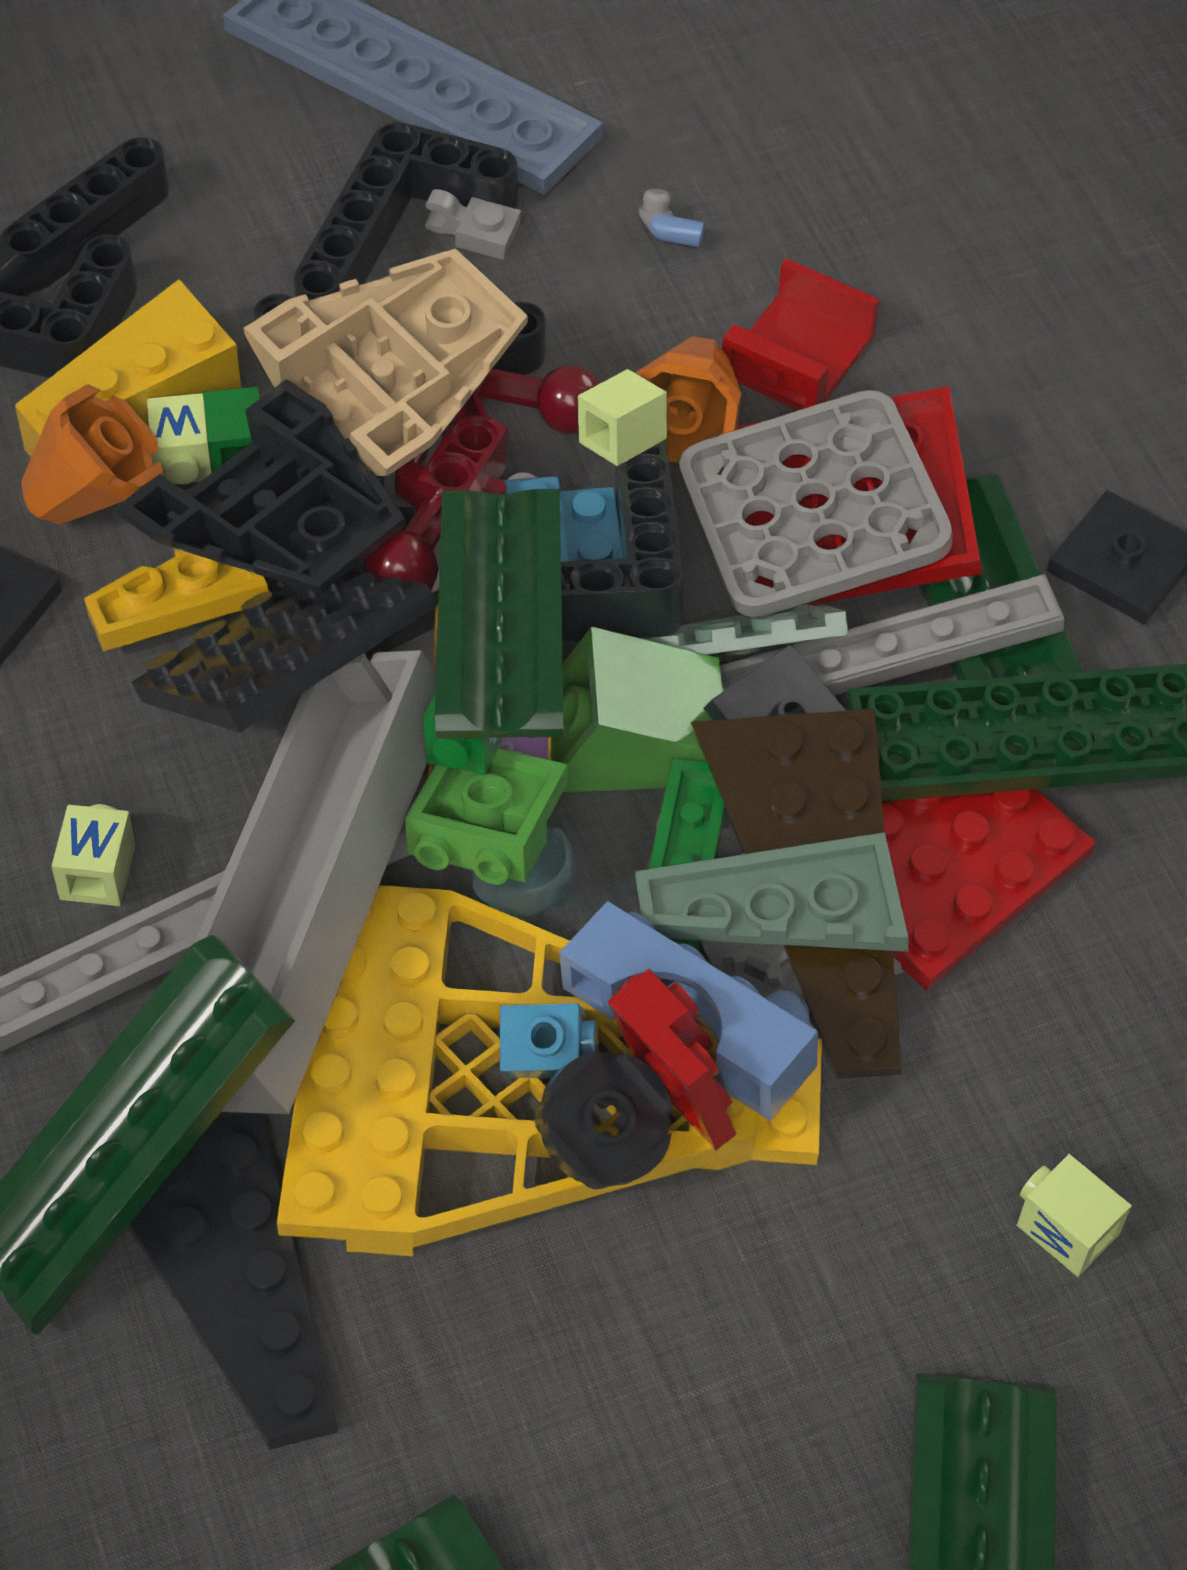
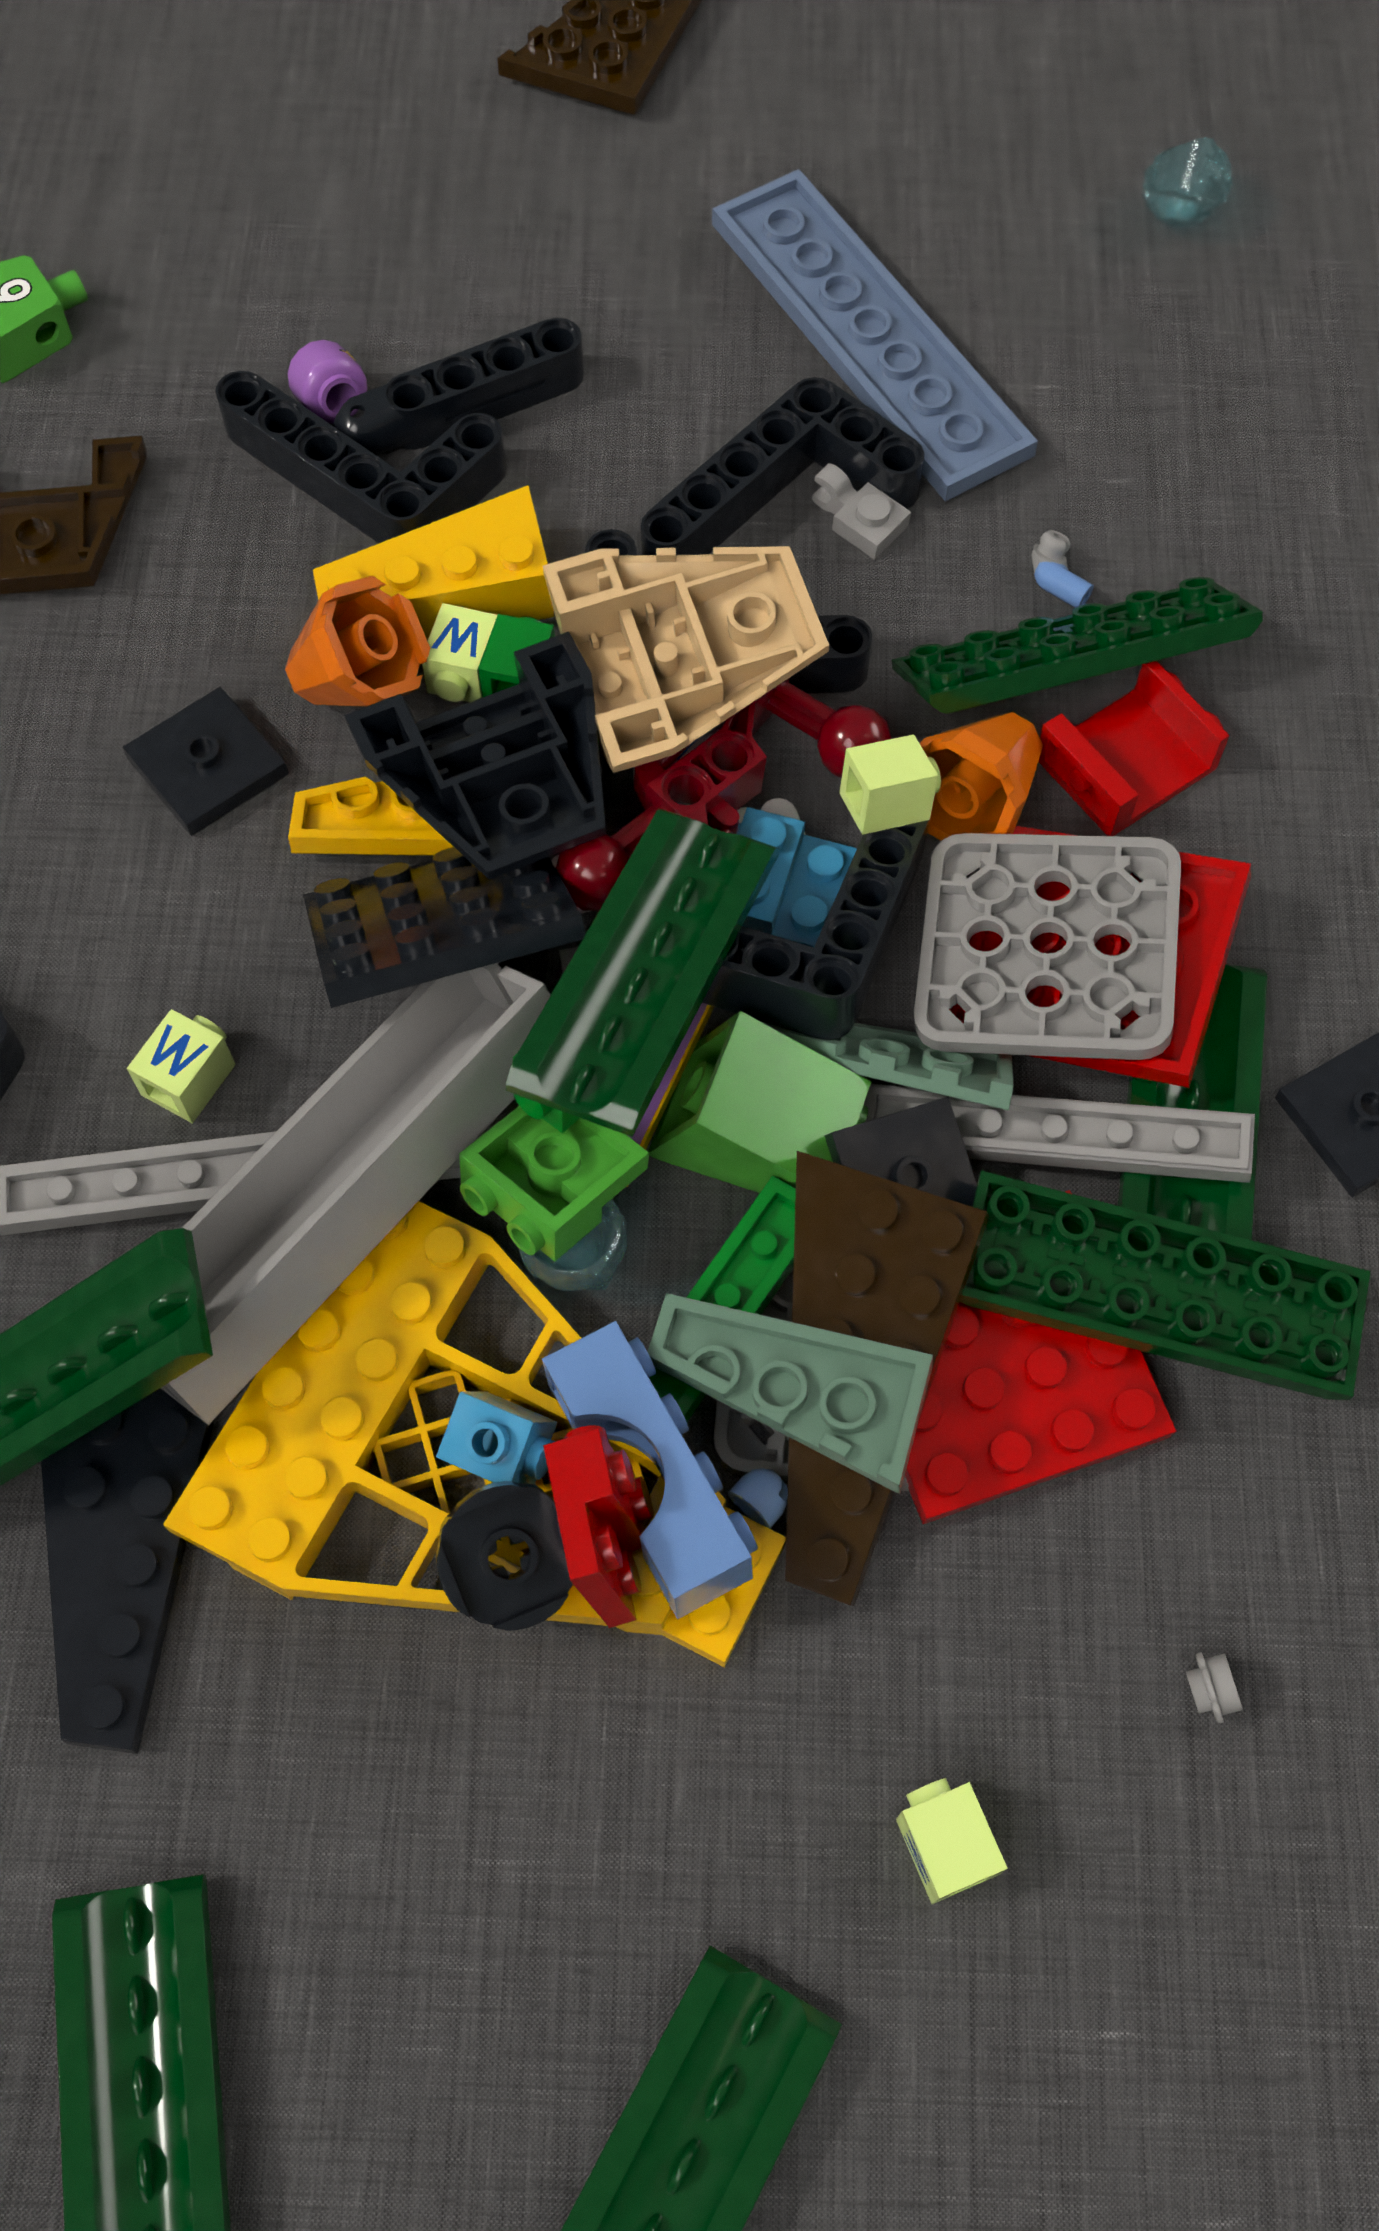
camera: 25 degrees right, 10 degrees up
(718, 270) = (1078, 645): none -> dark green plate

